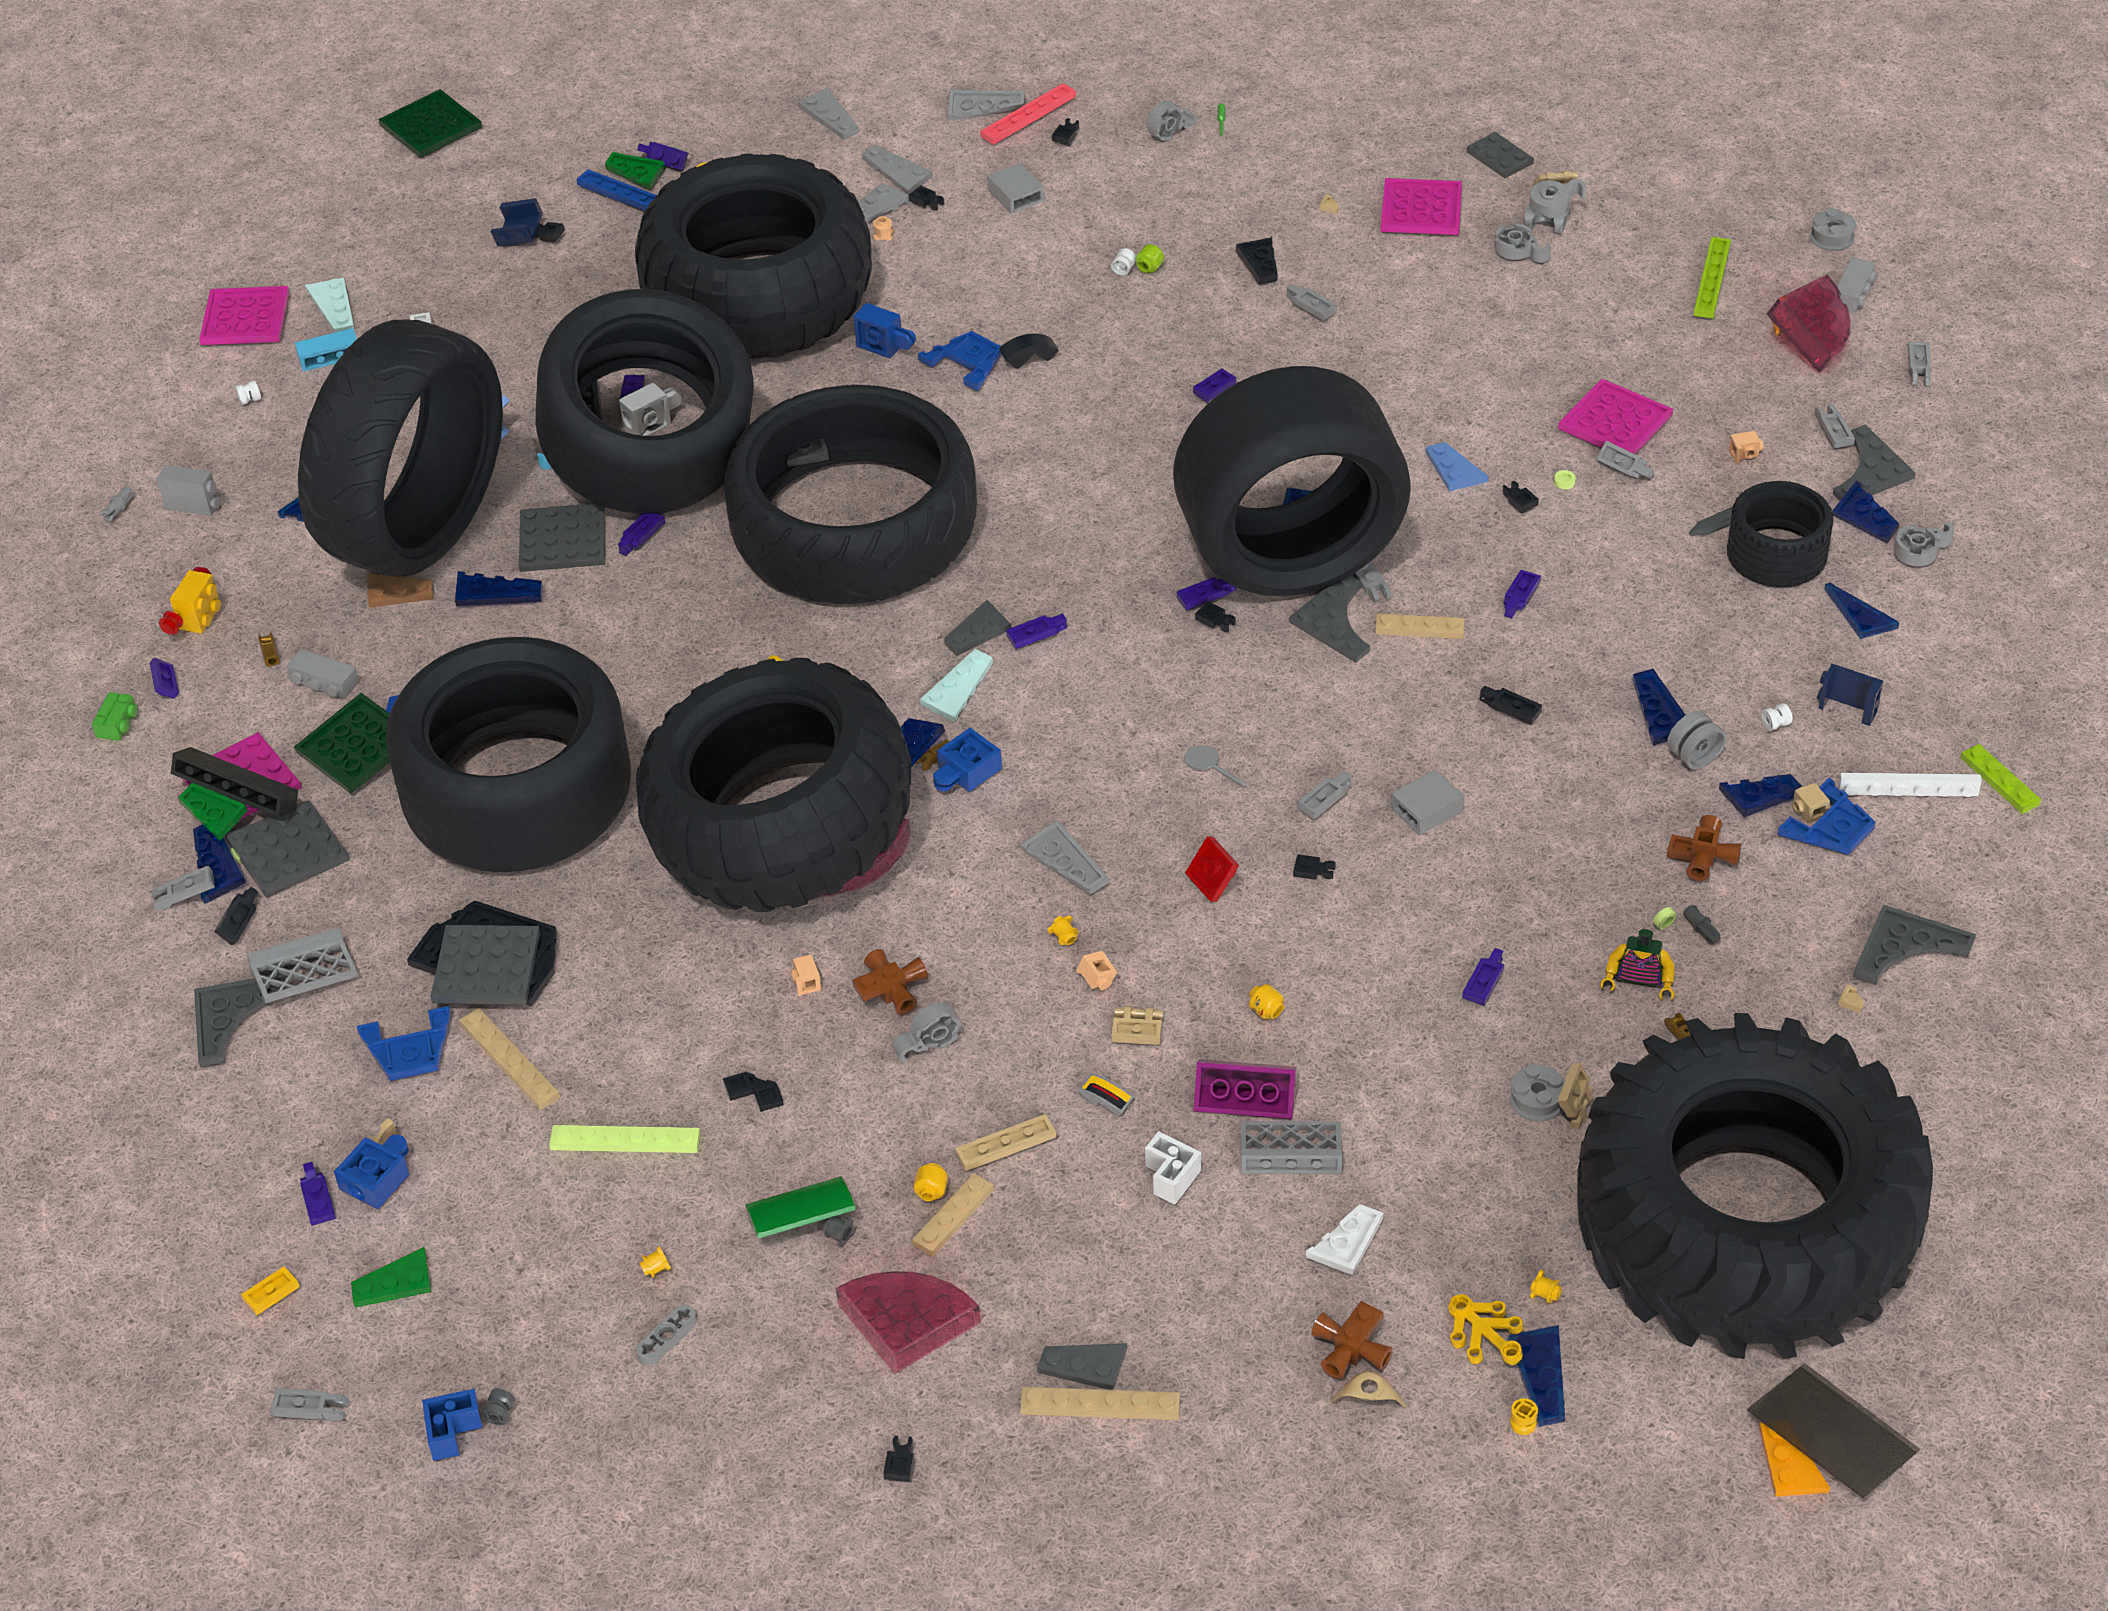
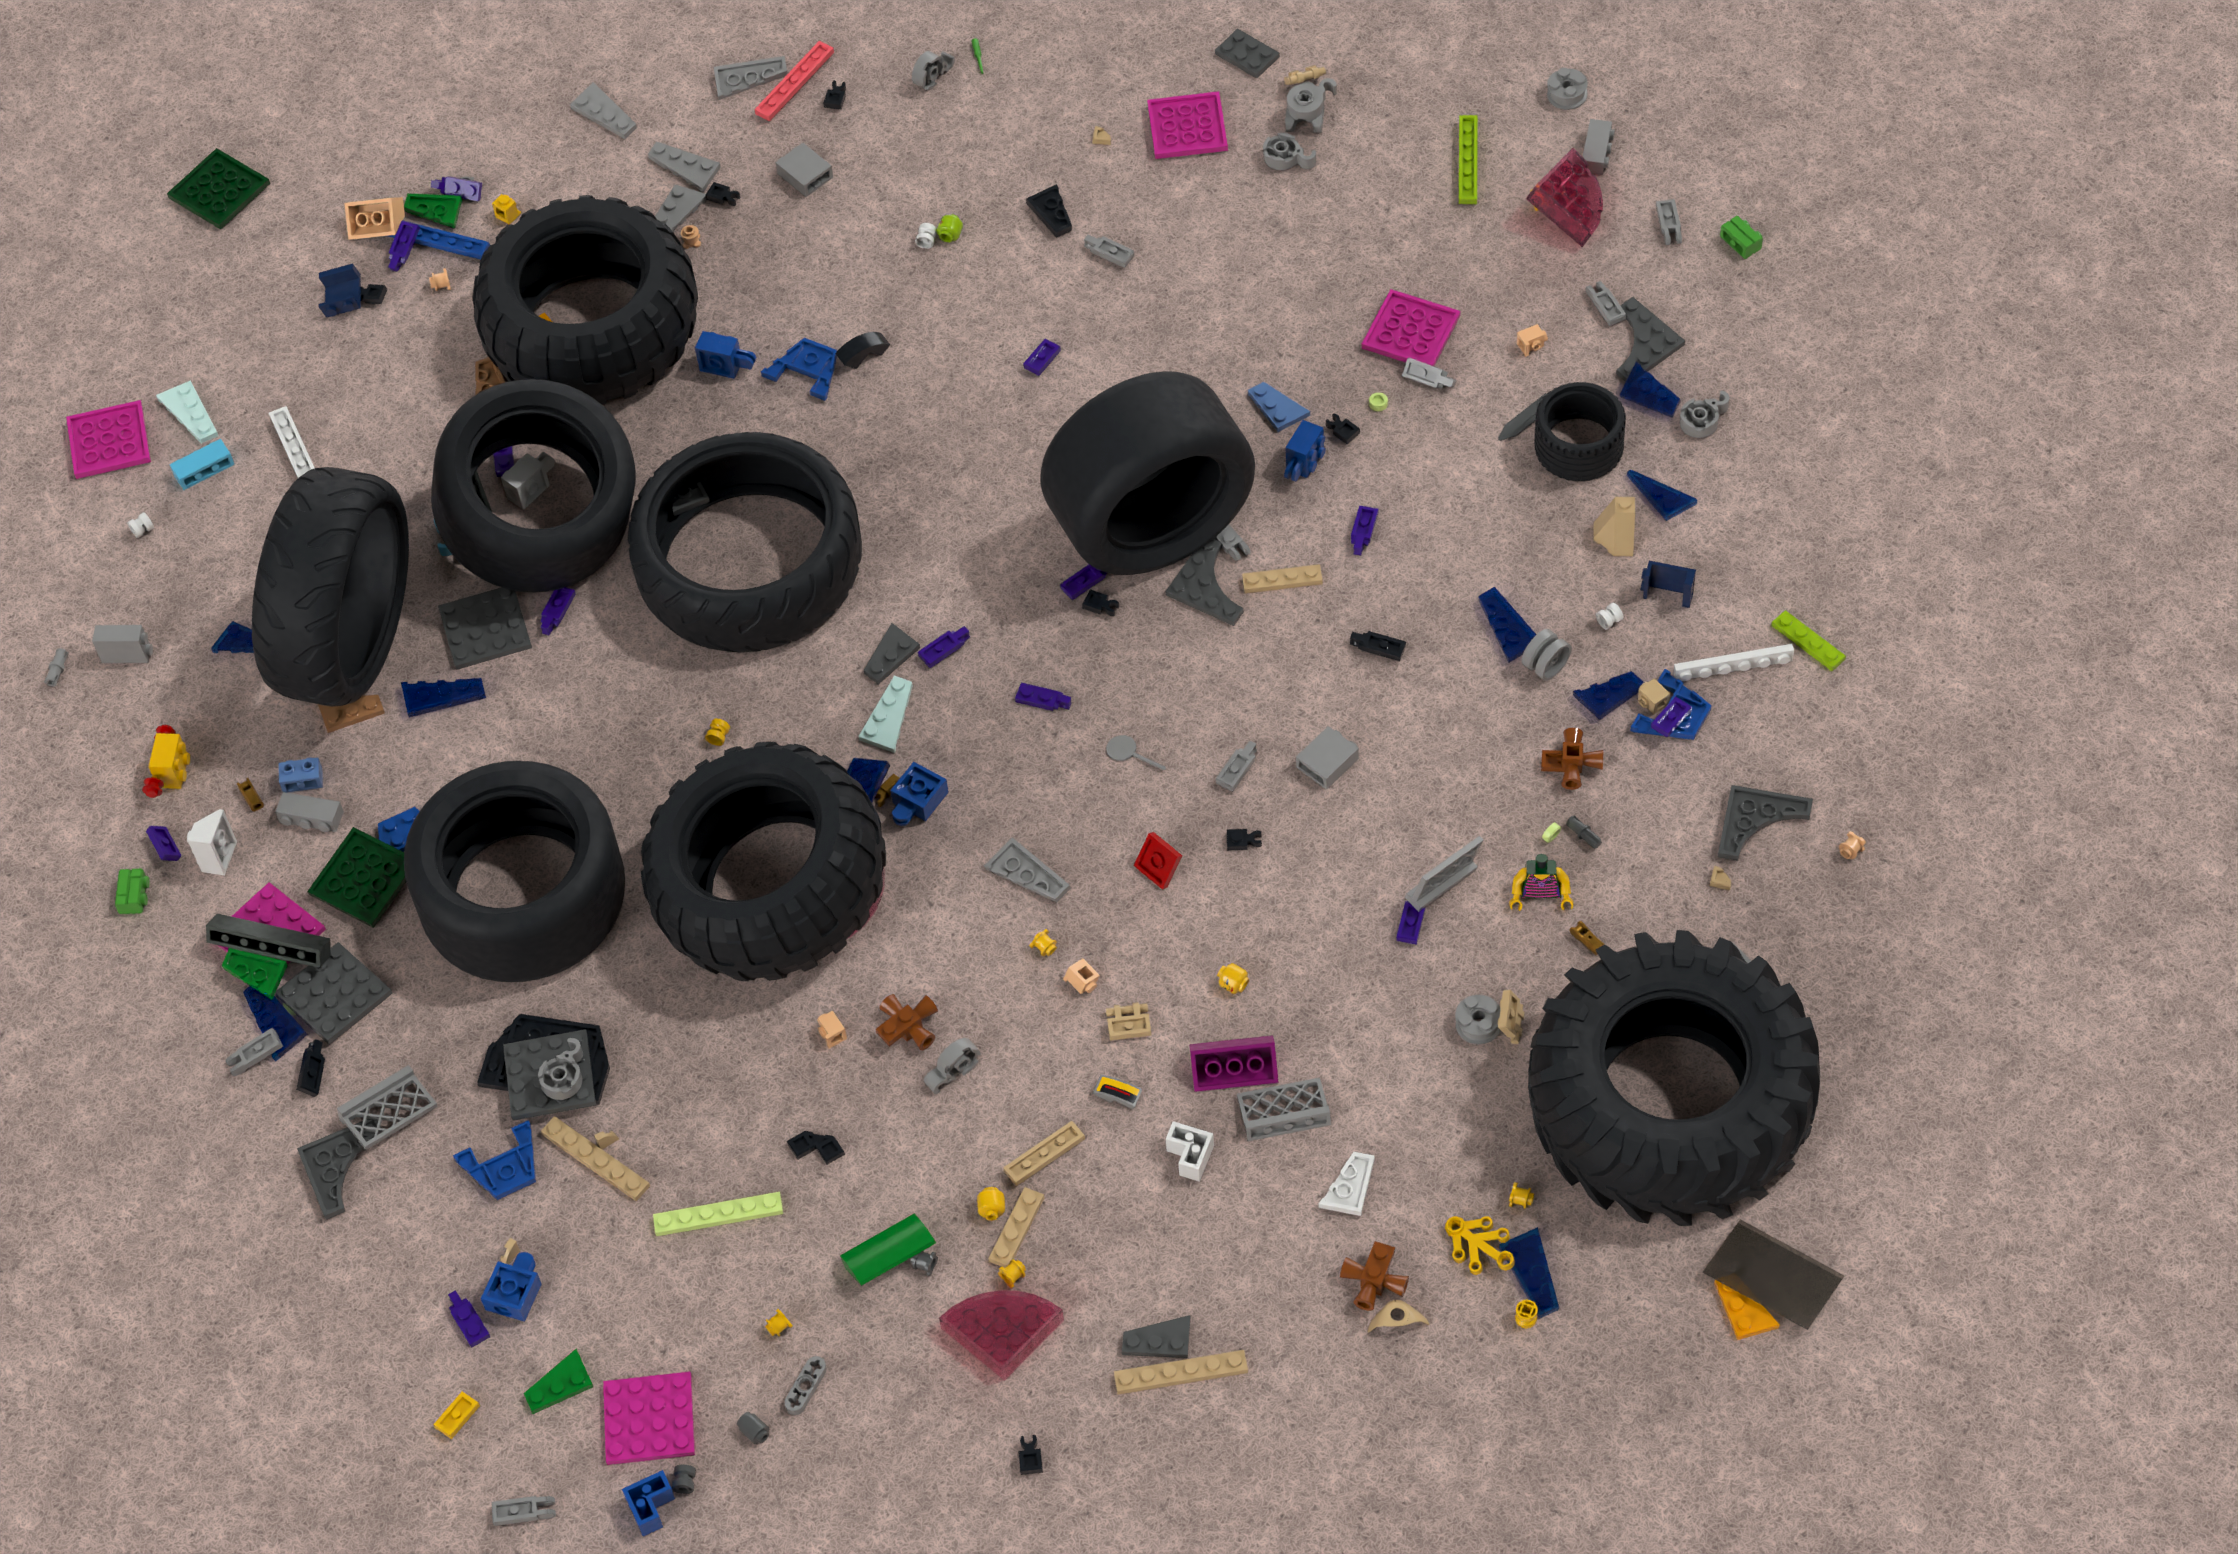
camera: 10 degrees left, 10 degrees up
(210, 680) = (212, 843): none -> white slope
(326, 638) = (300, 775): none -> medium blue brick
(481, 1336) = (648, 1418): none -> dark pink plate
(497, 962) = (562, 1065): none -> light grey piece
(526, 1040) = (605, 1139): none -> tan tile
(571, 164) = (374, 217): none -> light nougat slope
(592, 193) = (402, 244): none -> dark purple hinge
(593, 1367) = (753, 1428): none -> dark grey brick
(619, 229) = (440, 280): none -> light nougat brick
(934, 1259) = (1012, 1272): none -> yellow brick
(1128, 695) = (1042, 697): none -> dark purple hinge
(1472, 507) = (1304, 450): none -> blue brick
(1532, 935) = (1445, 876): none -> light grey fence
(1802, 631) = (1616, 527): none -> tan slope
(1826, 824) = (1671, 717): none -> dark purple plate
(1997, 387) = (1741, 237): none -> bright green brick
(2013, 990) = (1852, 846): none -> light nougat brick

